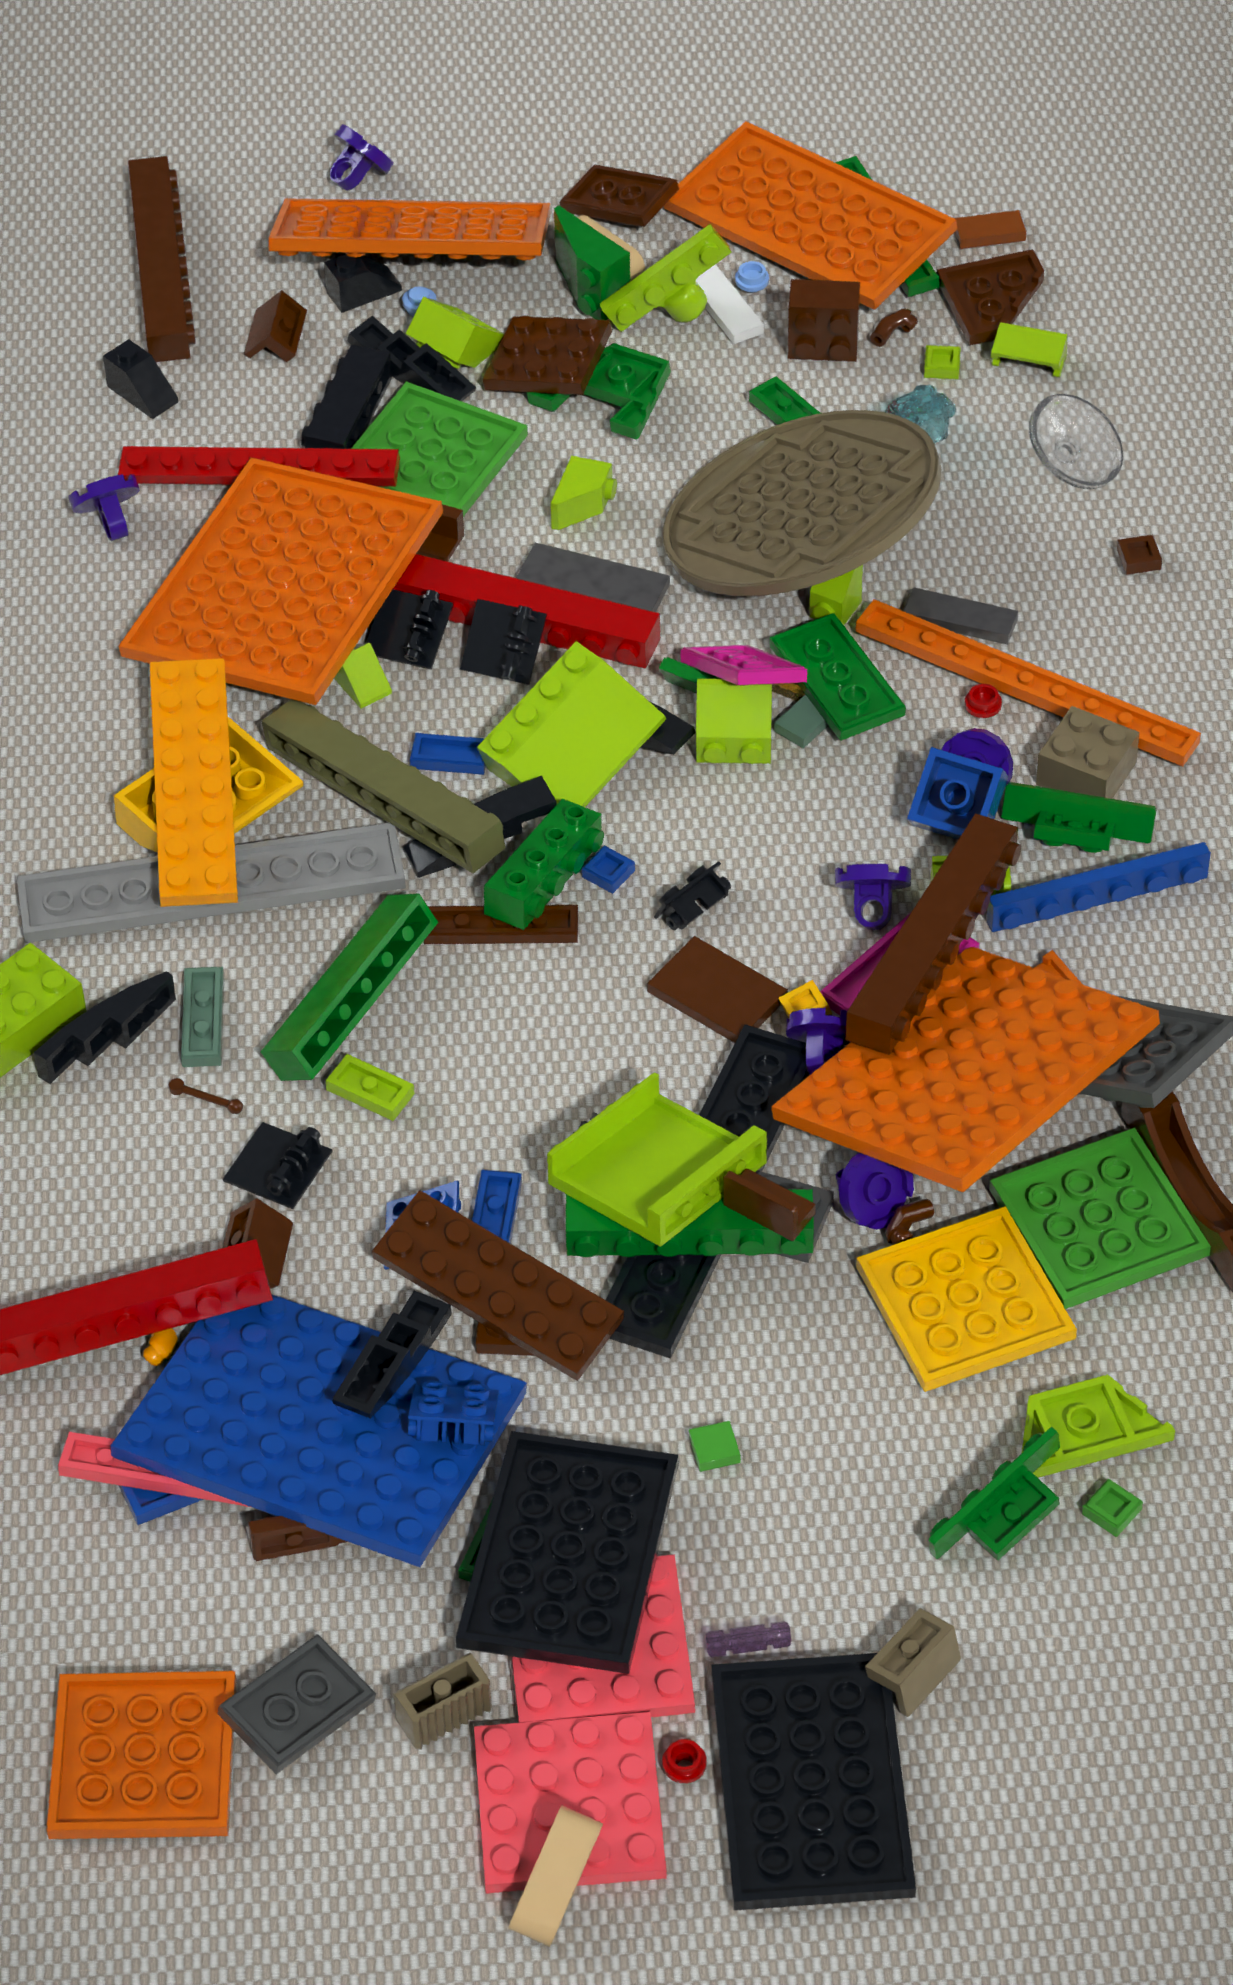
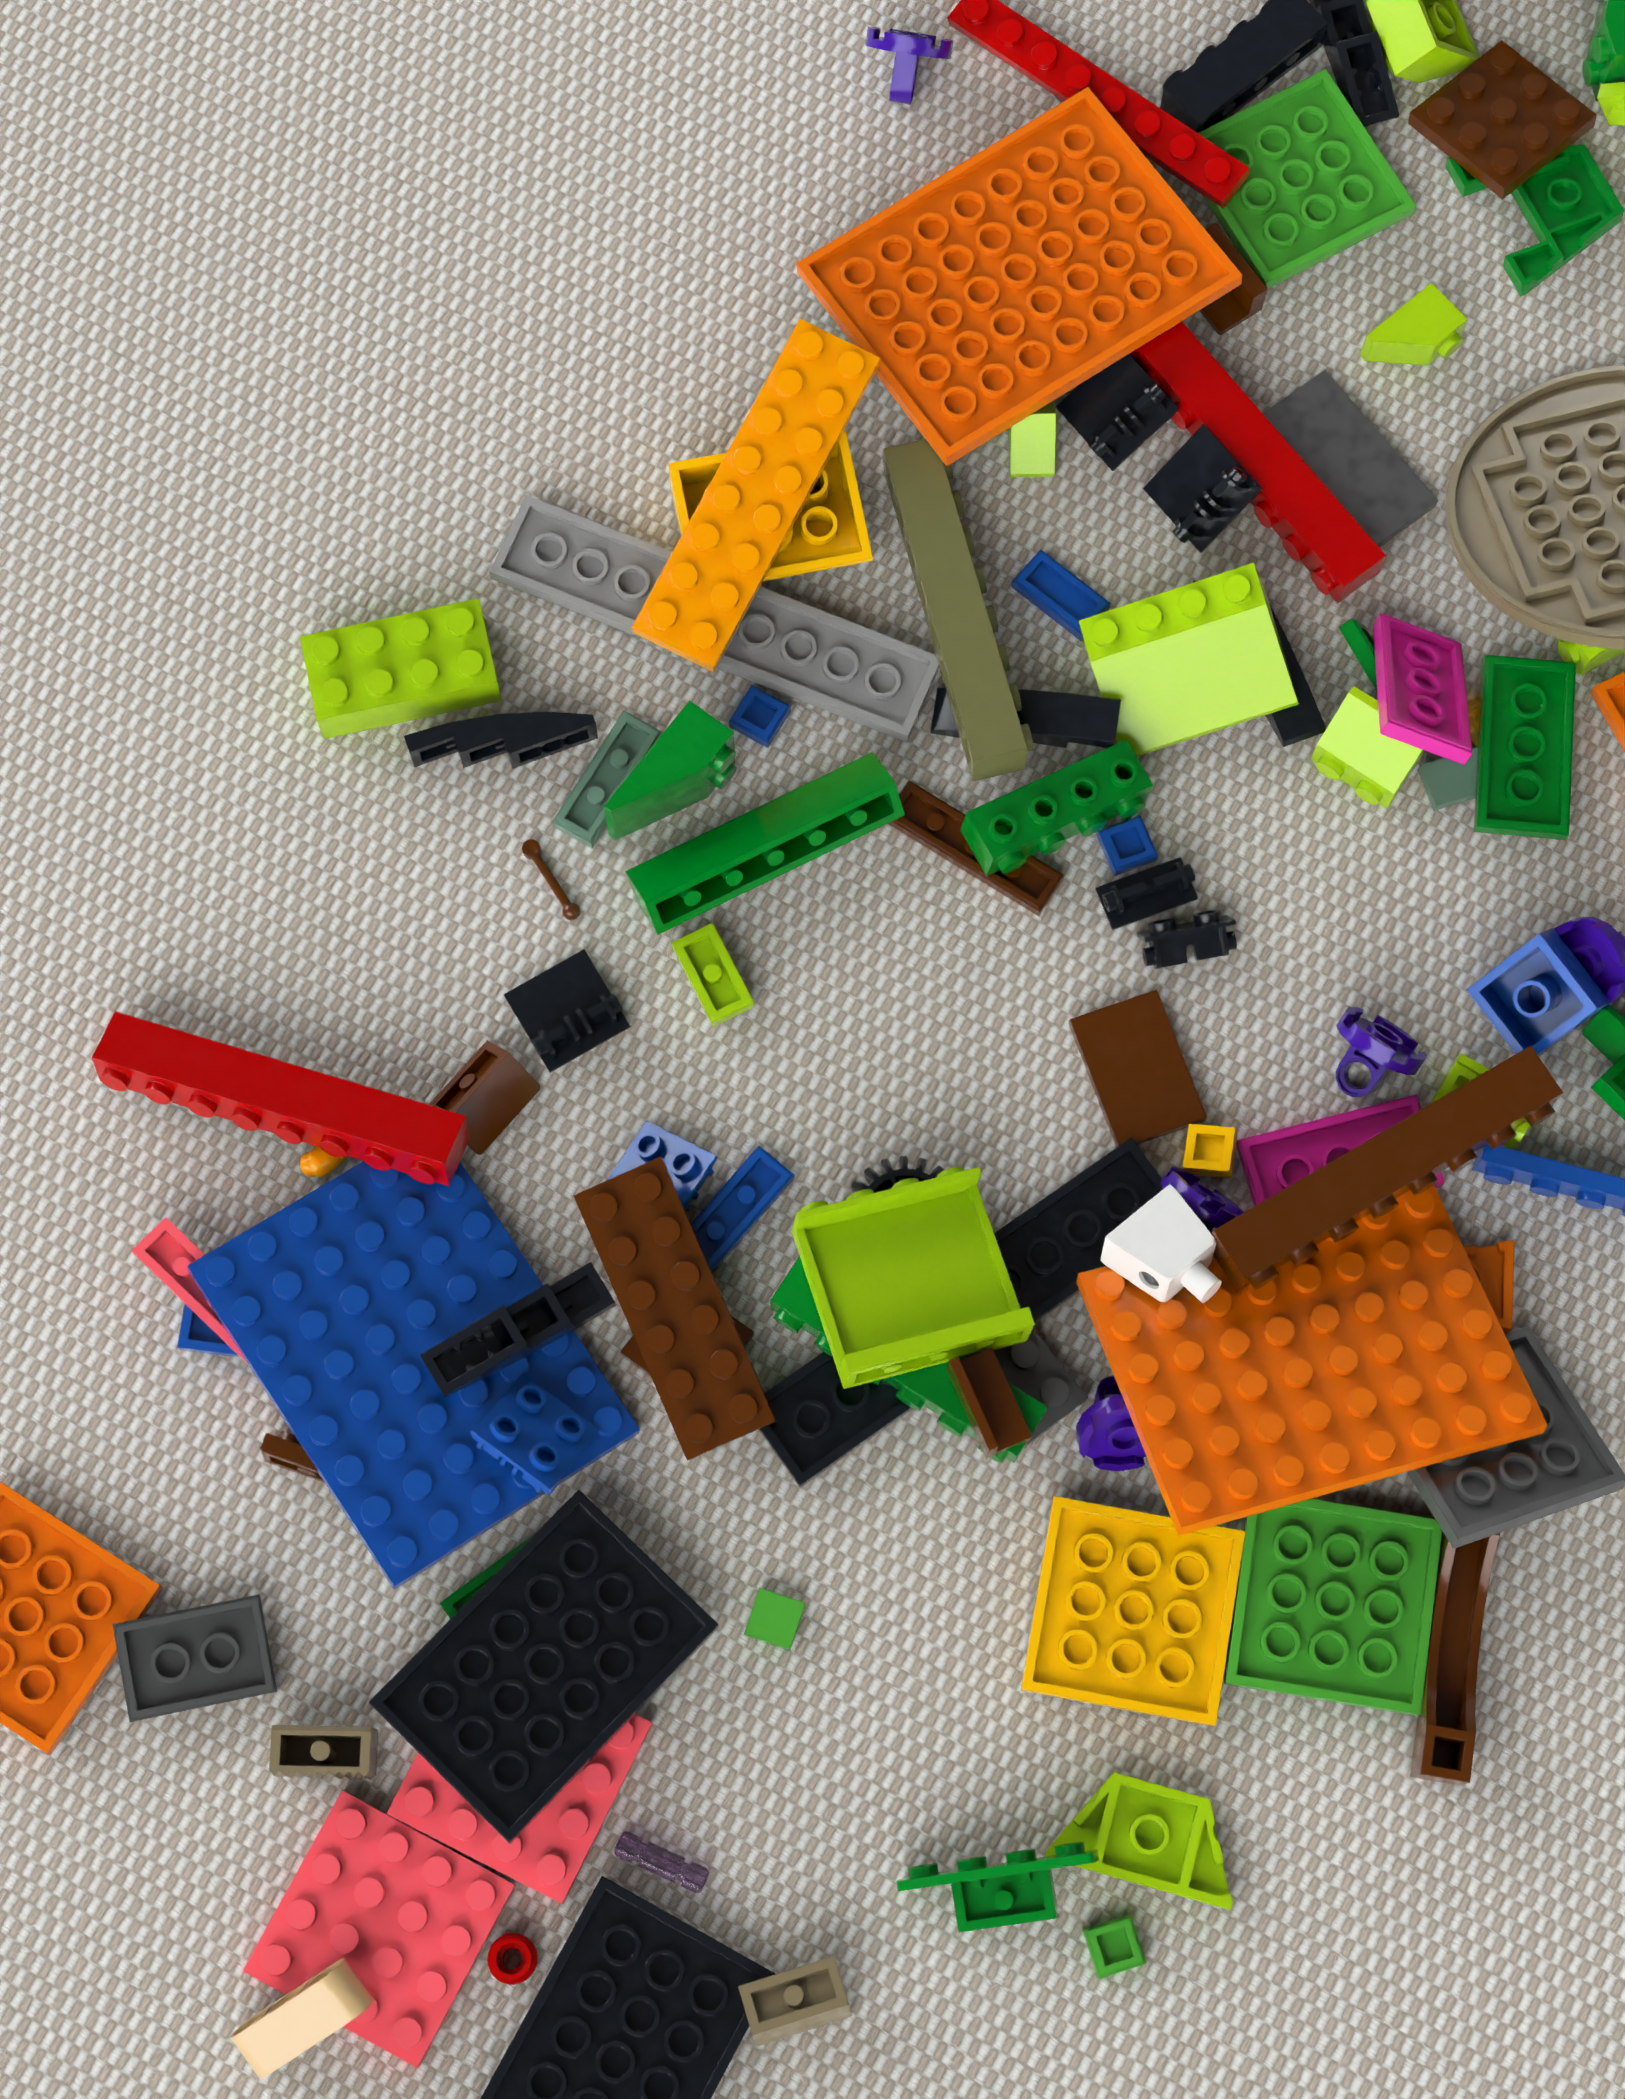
camera: 30 degrees right, 25 degrees up
(254, 973) = (675, 773): none -> green slope
(286, 925) = (759, 716): none -> blue tile
(645, 885) = (1147, 893): none -> black hinge
(820, 1052) = (1163, 1249): none -> white torso
(904, 1217) = (1122, 1482): reddish brown arm -> none

